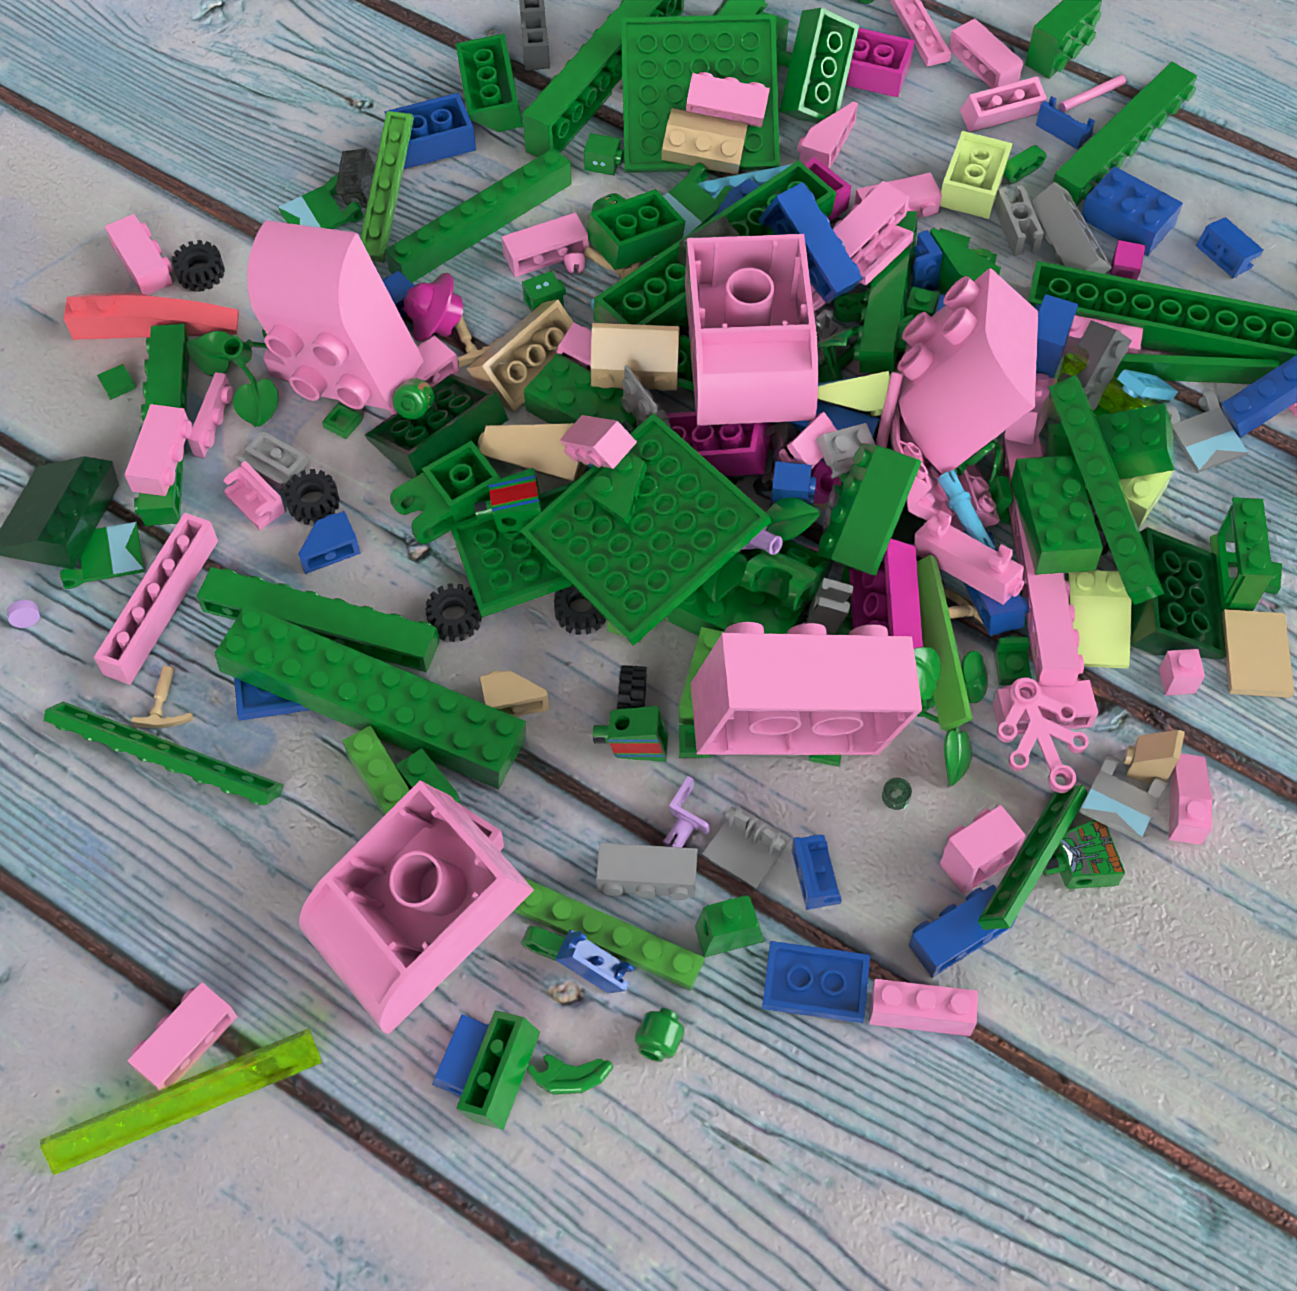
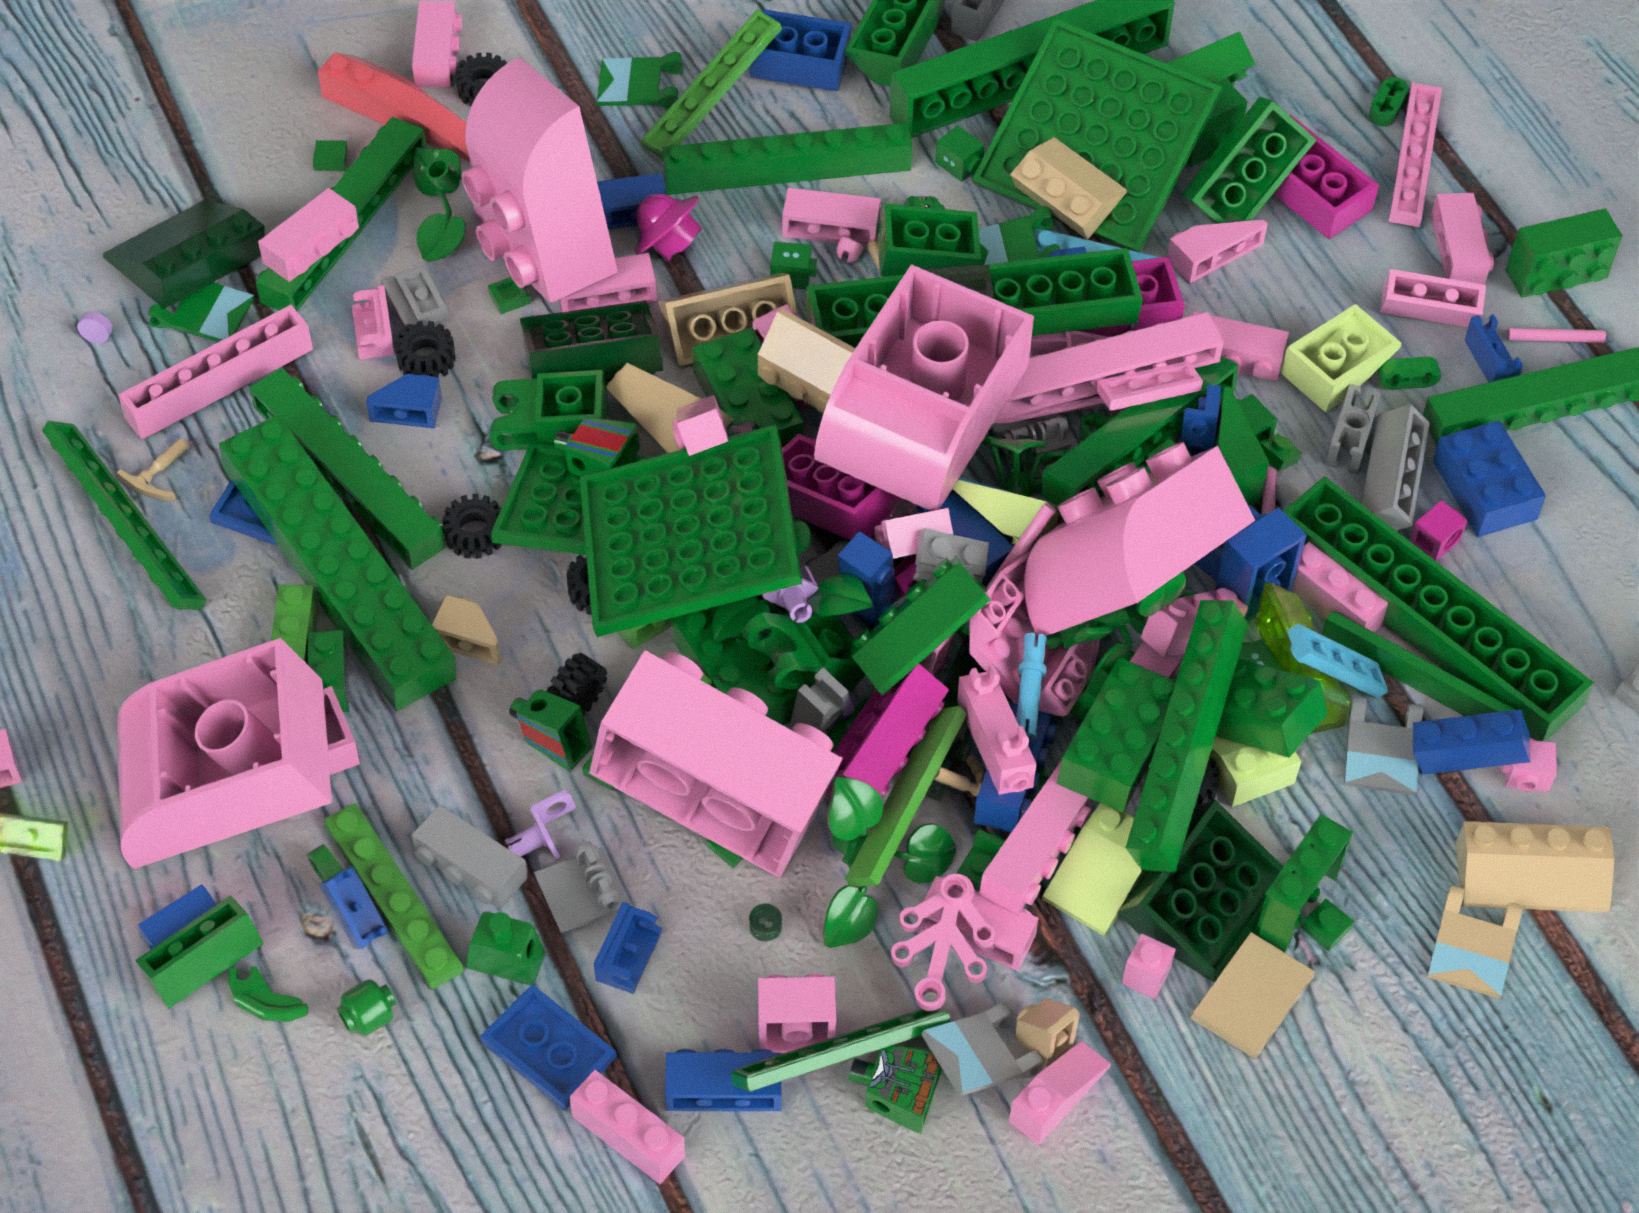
camera: 30 degrees right, 5 degrees down
(210, 415) = (388, 227): bright pink plate -> none
(355, 176) = (691, 59): clear smoke hinge -> none
(413, 398) = (578, 303): green head -> none
(472, 352) = (686, 272): tan piece -> none
(618, 487) = (691, 476): green wing -> none
(639, 400) = (787, 415): light grey hinge -> none
(727, 98) = (1115, 153): bright pink brick -> none
(828, 262) = (1067, 336): blue wedge -> none
(1105, 351) = (1297, 597): dark grey arch -> none
(1229, 247) = (1573, 570): blue hinge -> none

